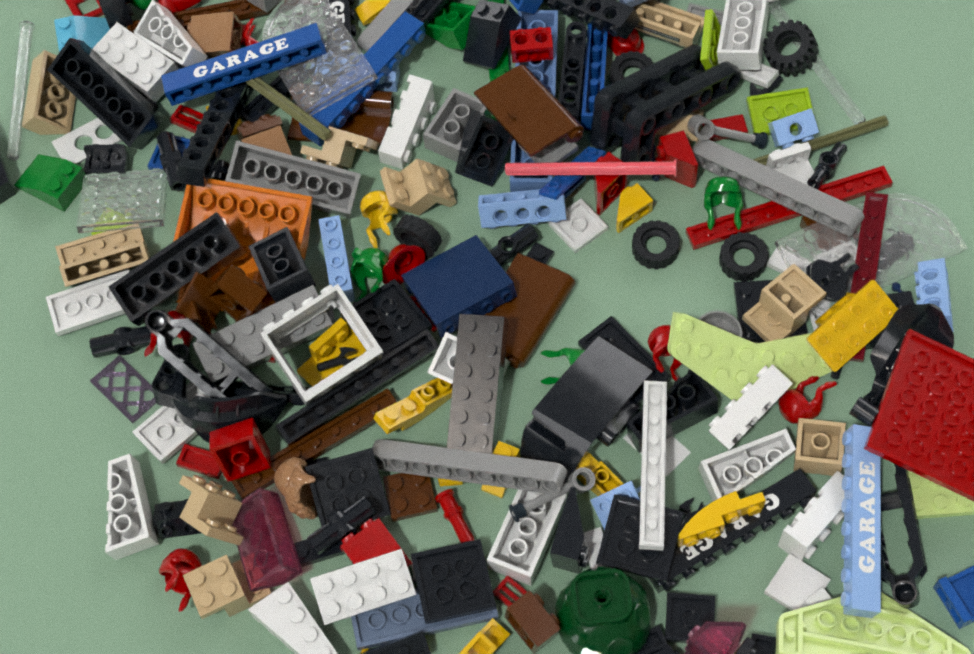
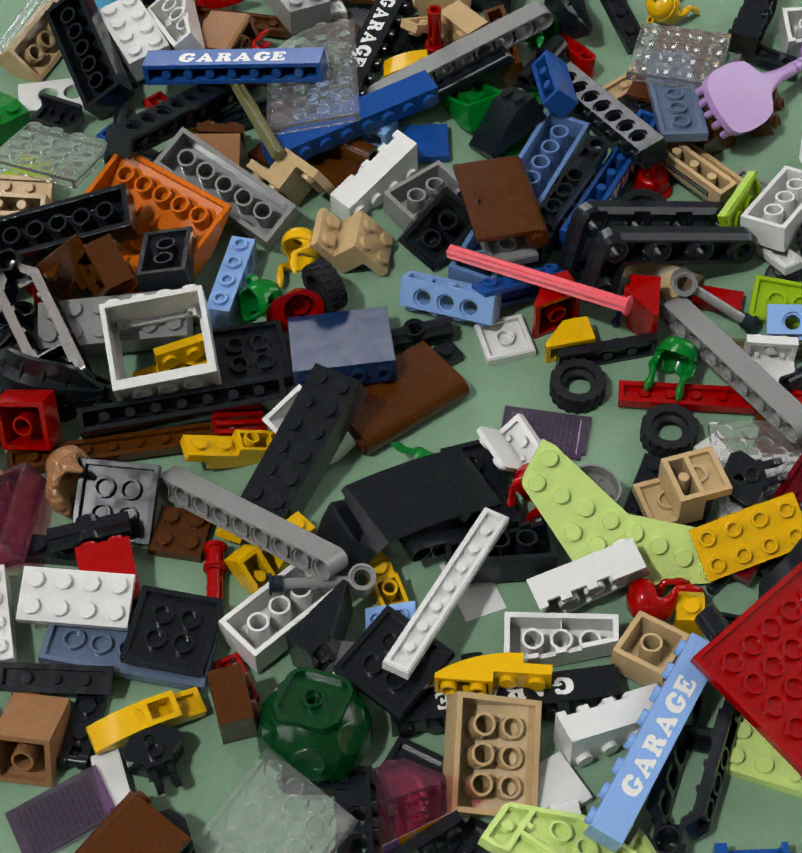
camera: 20 degrees right, 10 degrees down
(403, 376) = (238, 421): none -> red tile
(429, 67) = (430, 140): none -> blue tile
(485, 503) = (249, 567): none -> yellow slope
(527, 44) = (540, 143): red brick -> none
(635, 316) = (511, 444): none -> white bracket
(648, 294) = (564, 430): none -> clear purple window
(668, 204) = (612, 350): none -> black plate
(746, 579) = (491, 753): none -> tan slope
(834, 402) = (686, 609): none -> yellow slope

